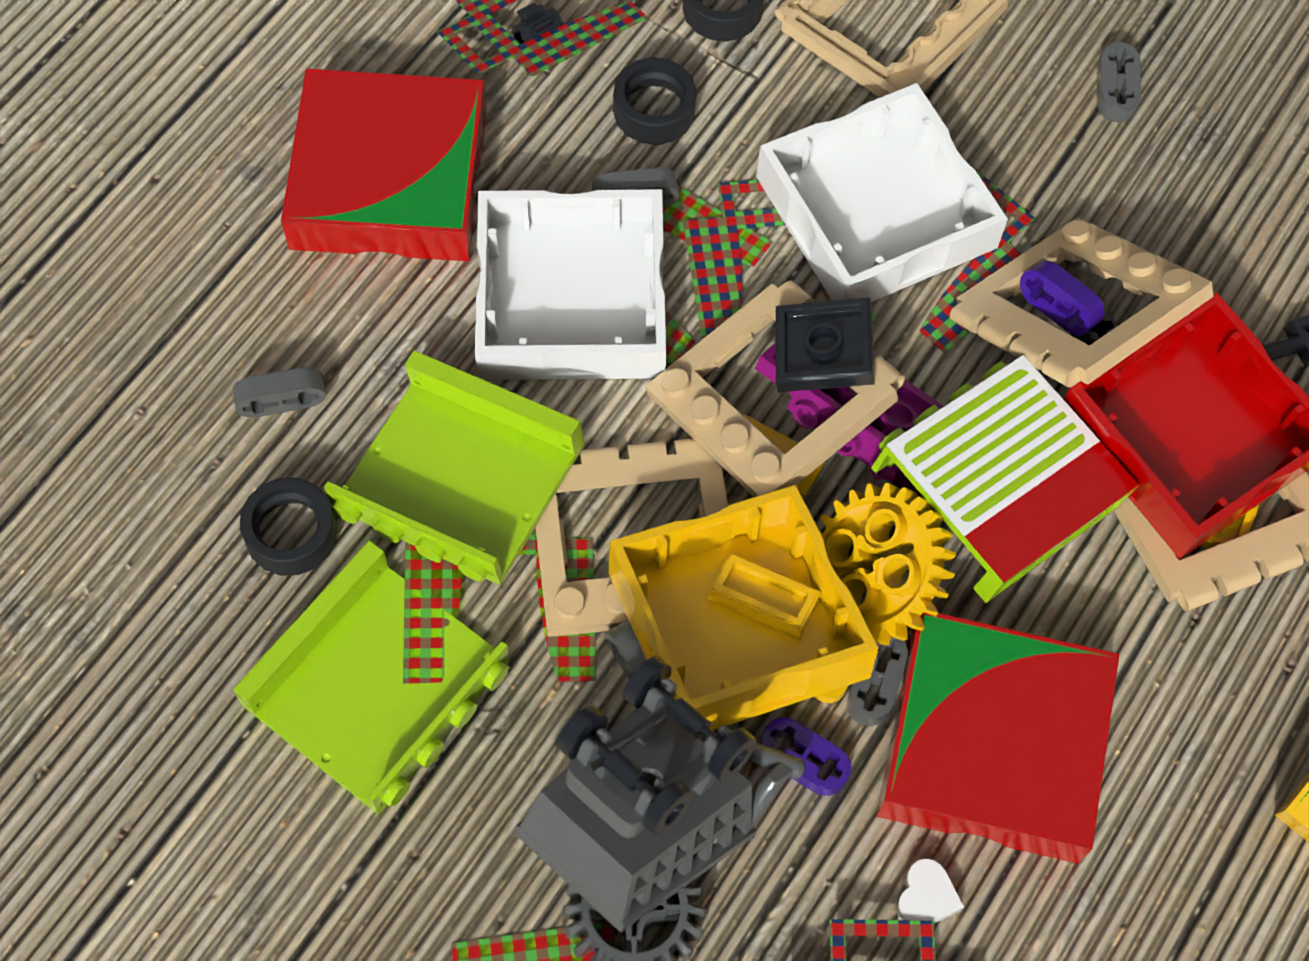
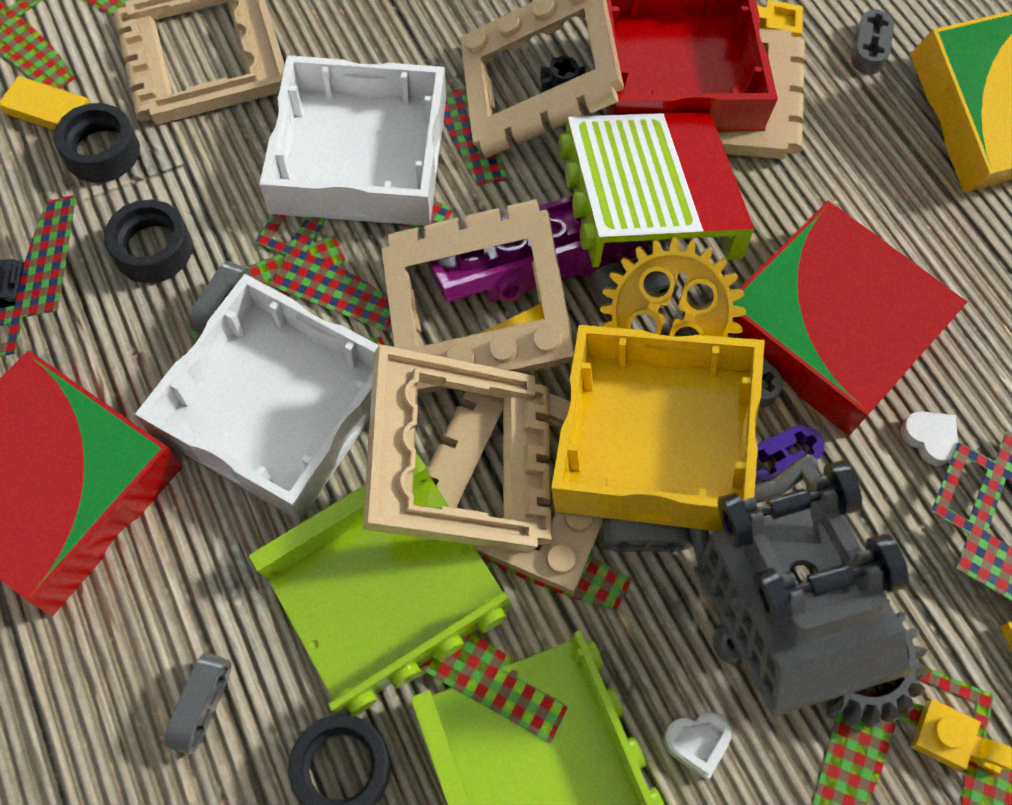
camera: 60 degrees left, 0 degrees up
(474, 809) = (698, 742): none -> white tile
(576, 392) = (392, 453): none -> tan hinge
(764, 595) = (651, 403): yellow tile -> none
(824, 345) = (471, 237): black tile -> none
(1062, 298) = (533, 70): dark purple beam -> none

